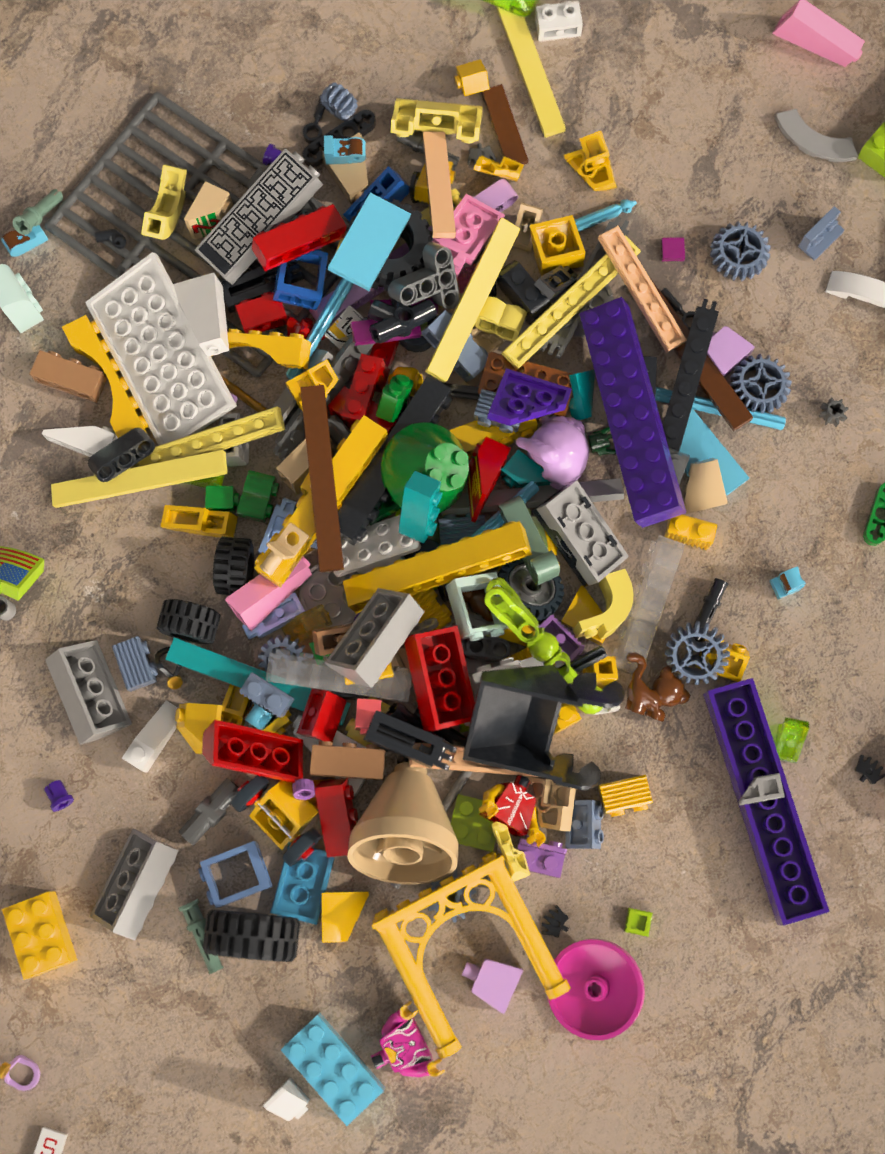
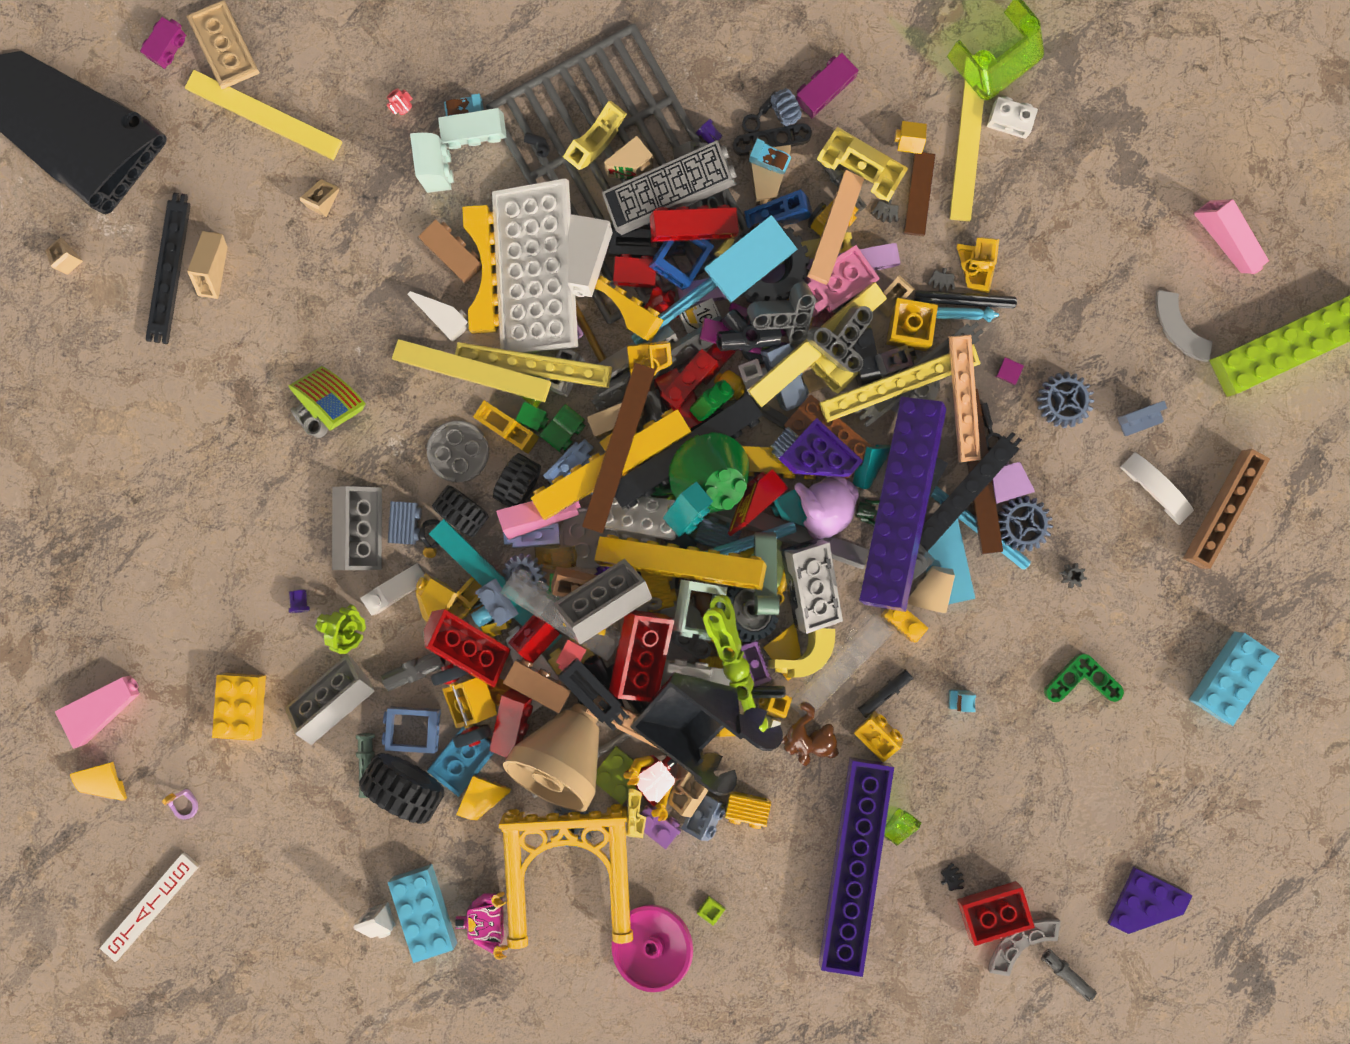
camera: 25 degrees right, 10 degrees up
(33, 215) = (478, 95): sand green pin -> none
(40, 250) = (472, 128): none -> light aqua brick
(114, 800) = (340, 628): none -> lime piece
(121, 454) = (465, 343): black beam -> none
(159, 568) = (457, 451): none -> light grey tile
(282, 549) = (558, 495): tan bracket -> none
(303, 789) = (492, 692): medium lavender axle -> none
(368, 66) = (826, 85): none -> magenta brick
(420, 358) = (751, 373): none -> white brick
(493, 982) = (576, 905): lavender torso -> none
(496, 284) = (843, 343): none -> dark grey beam
(506, 169) = (901, 236): yellow slope -> none
(556, 923) = (646, 881): black piece -> none
(566, 193) = (942, 279): none -> dark grey piece
(600, 200) = (965, 299): none -> black axle
(691, 644) = (864, 720): sand blue gear -> none
(763, 789) = (857, 859): light grey tile -> none

